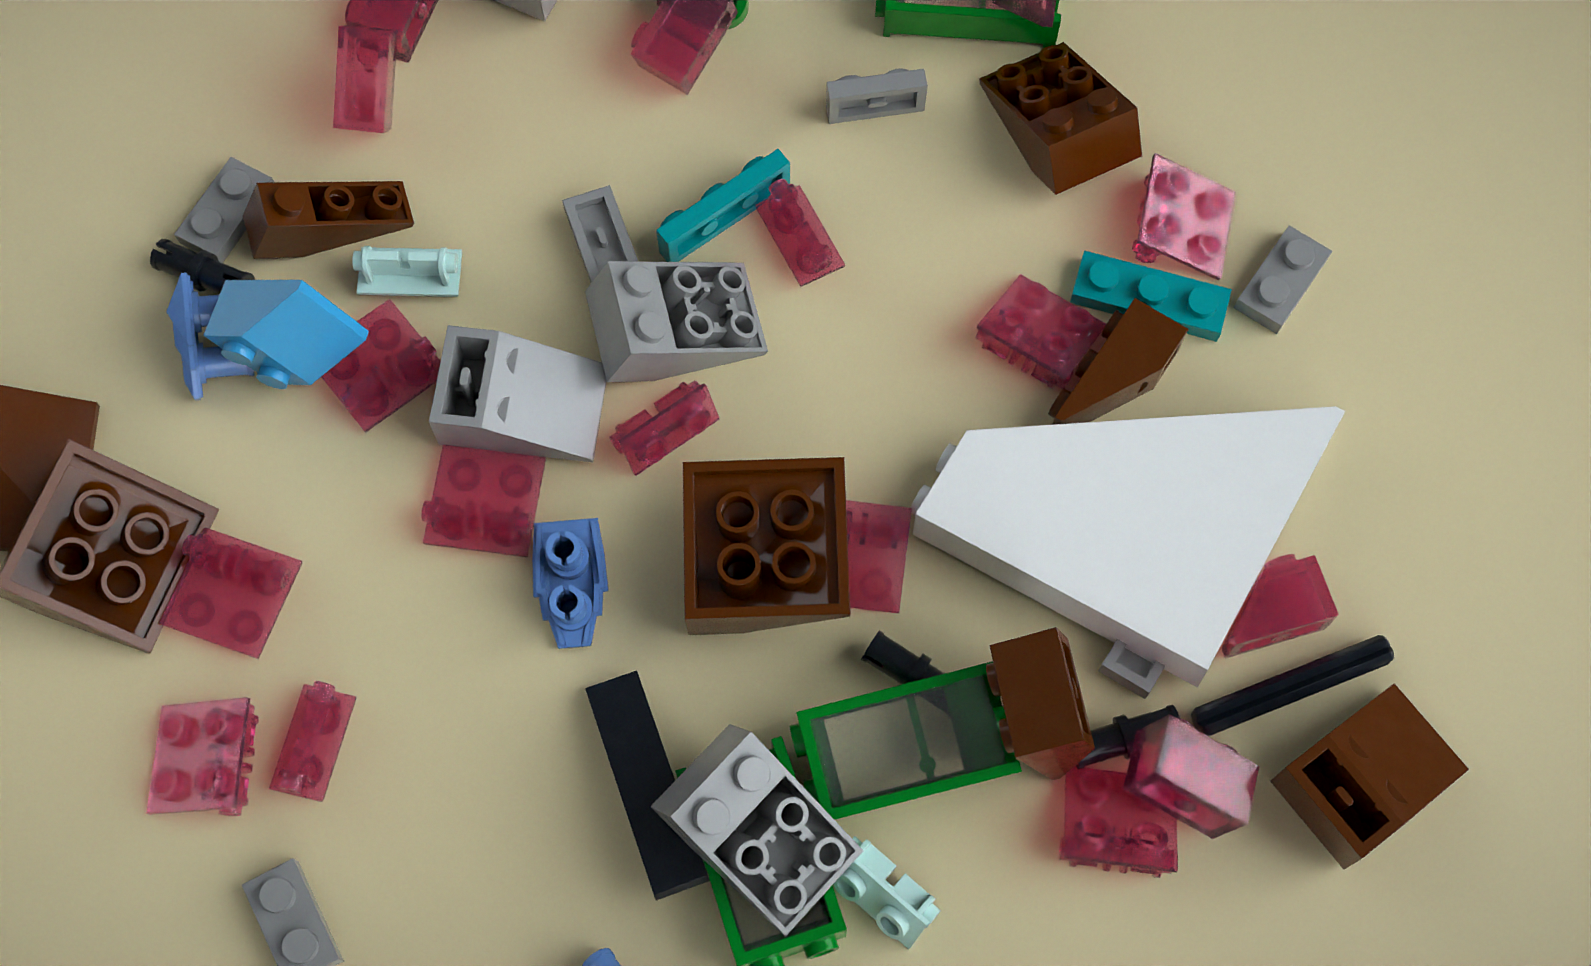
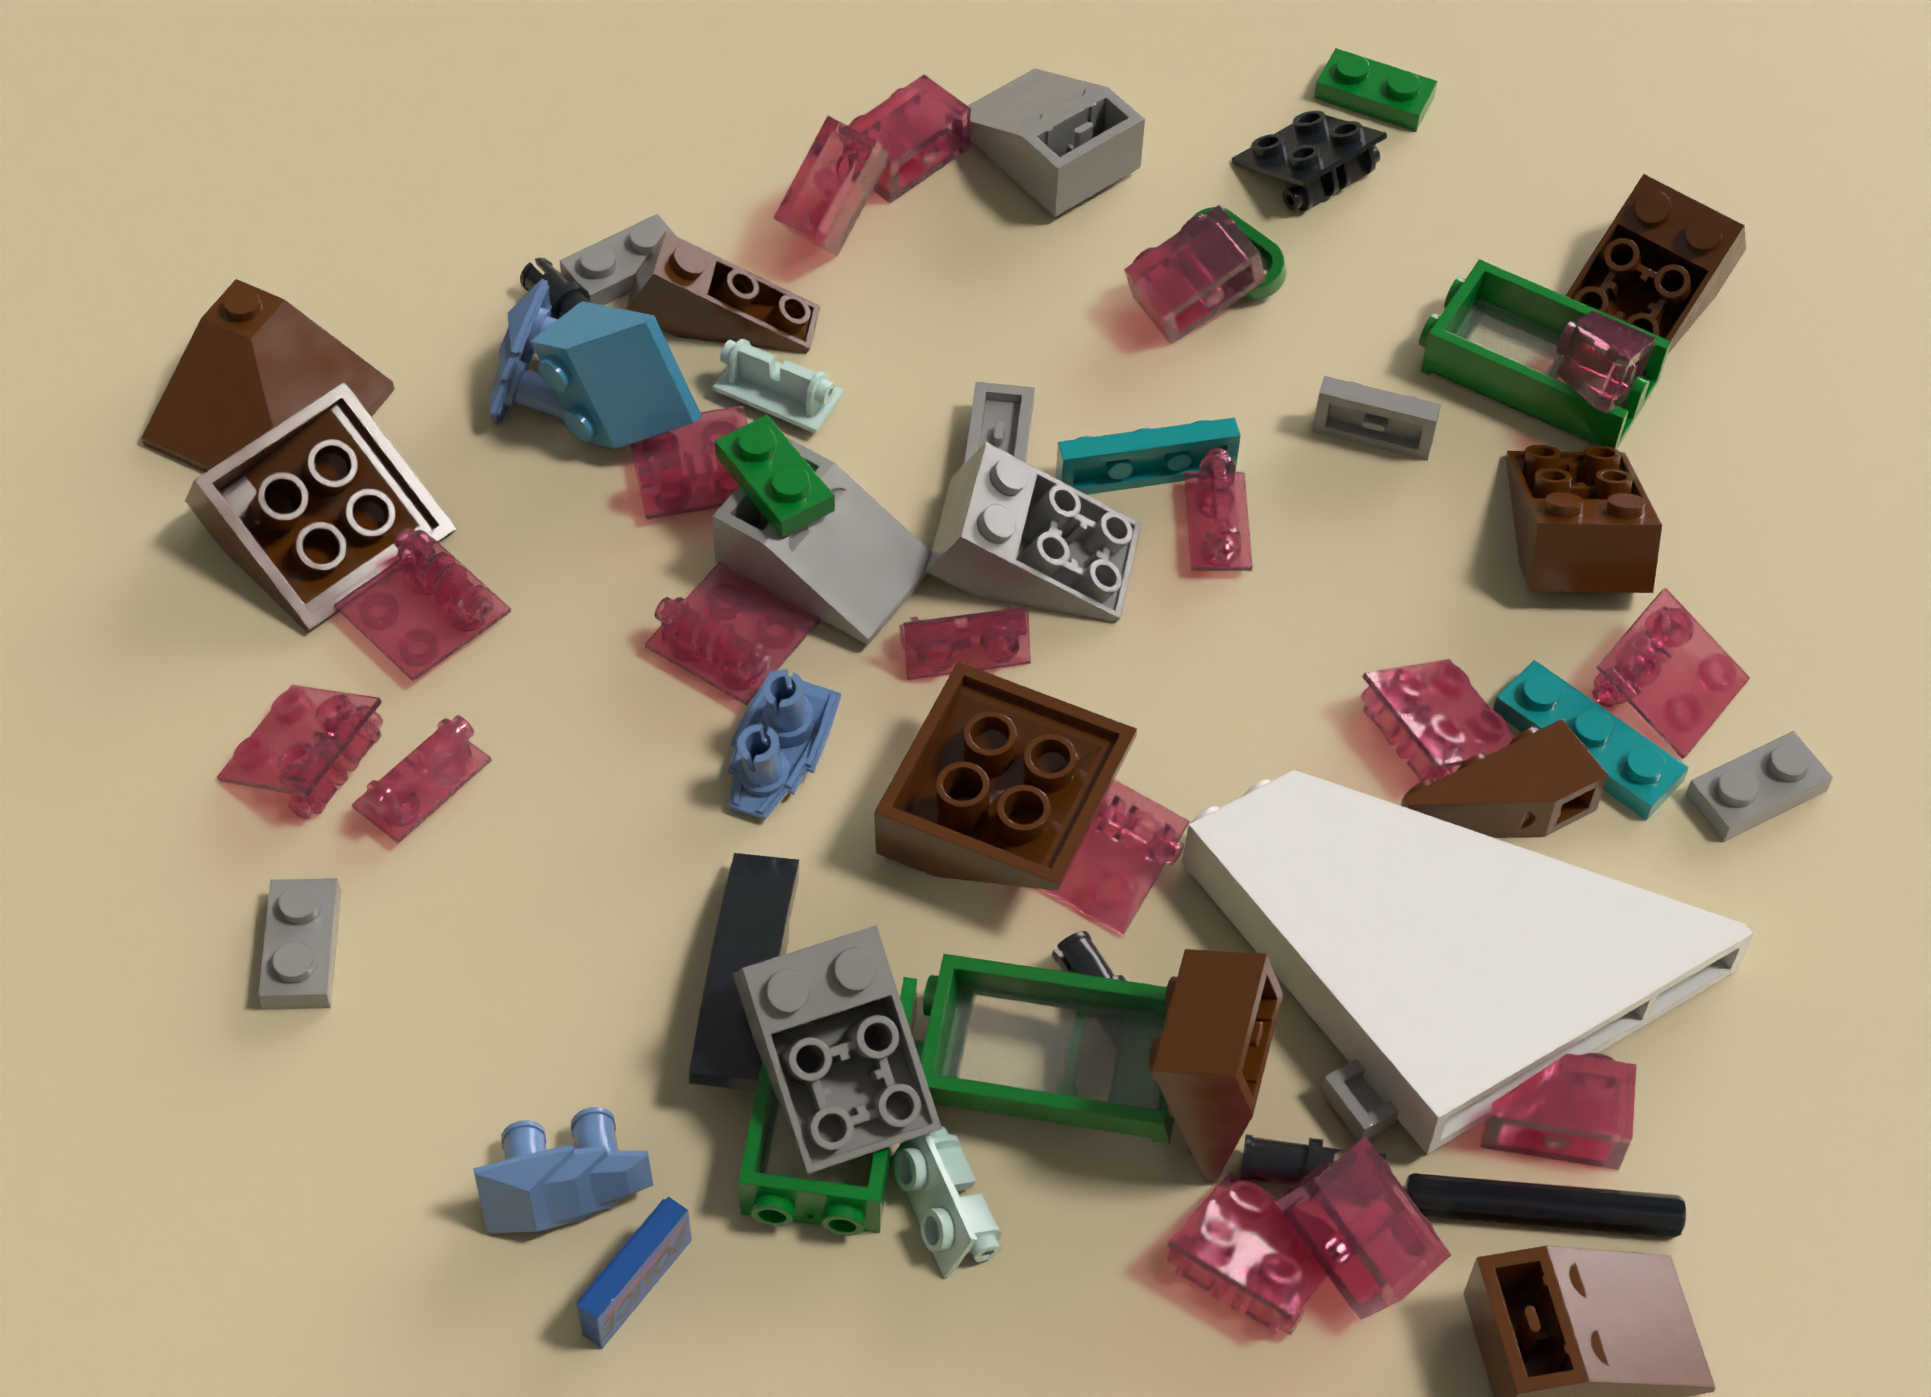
camera: 25 degrees right, 15 degrees down
(460, 366) = (774, 476): none -> green plate

